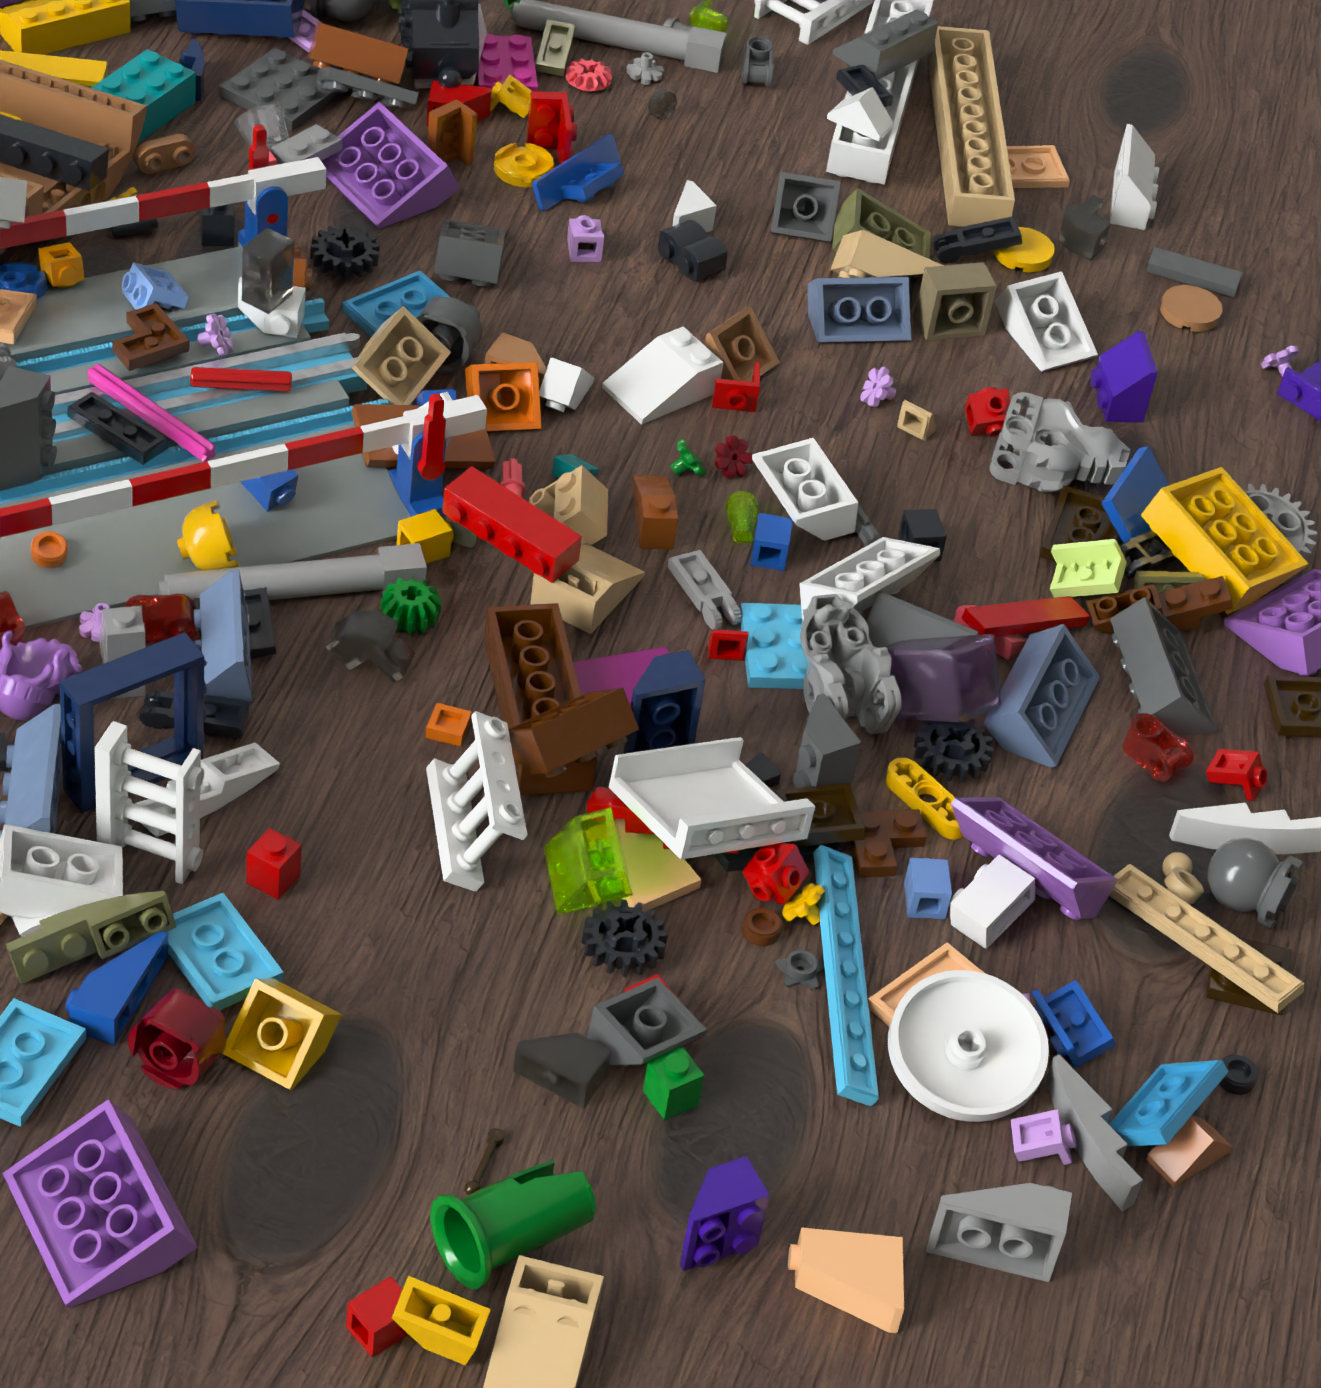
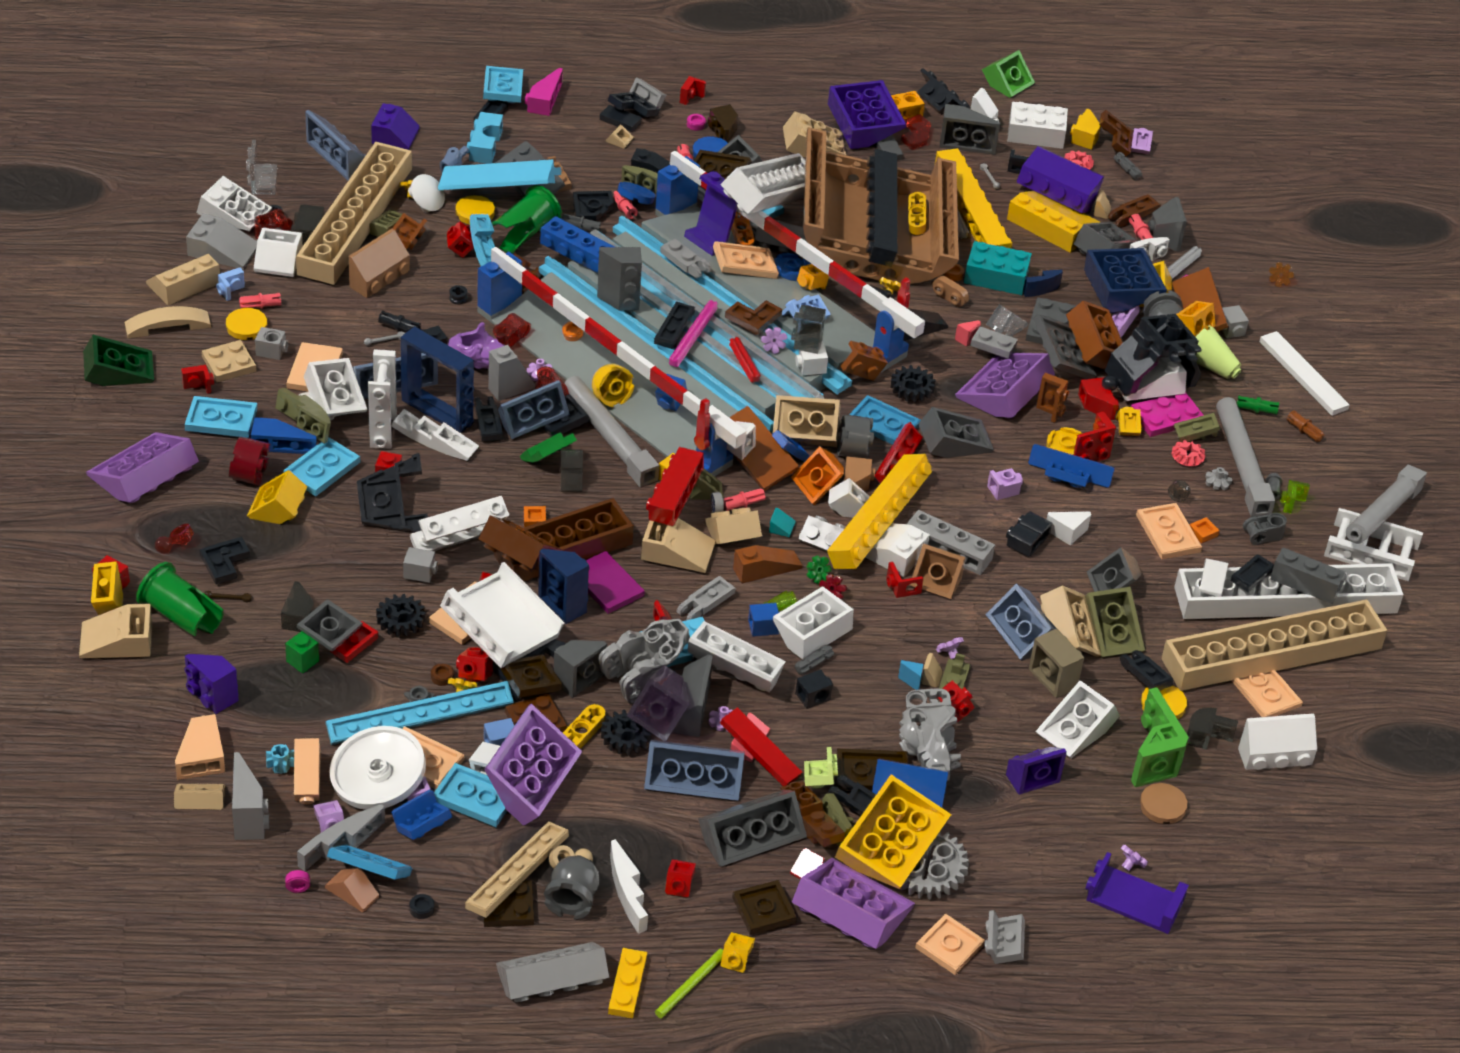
camera: 75 degrees right, 0 degrees up
(316, 658) = (547, 447): none -> green slope
(319, 1223) = (180, 535): none -> clear red plate
(348, 886) = (382, 497): none -> black wing
(399, 1152) = (219, 558): none -> black plate
(411, 605) = (615, 478): green gear -> none
(489, 311) = (904, 444): none -> red tile
(524, 882) = (419, 565): none -> light grey brick
(587, 862) = (436, 584): clear neon green slope -> none
(610, 359) = (879, 511): none -> yellow brick
(620, 433) = (820, 533): none -> bracket
(696, 311) = (977, 551): none -> light grey brick
(722, 141) = (1168, 531): none -> light nougat tile
(733, 113) = (1204, 530): none -> orange tile
(905, 1171) = (280, 758): none -> medium azure gear
(922, 437) = (911, 673): none -> dark azure slope
(945, 410) = (956, 671): none -> olive plate
(946, 1137) = (307, 770): none -> light nougat slope
(946, 1305) = (199, 796): none -> tan slope
(1036, 948) = (470, 795): none -> medium azure plate
(1117, 257) = (1165, 745): none -> bright green bracket
(1154, 747) = (679, 829): clear red piece -> none
(1174, 1210) = (297, 881): none -> dark pink tile
(1194, 272) = (1209, 800): dark grey tile -> none
(1238, 644) = (806, 862): none -> slope

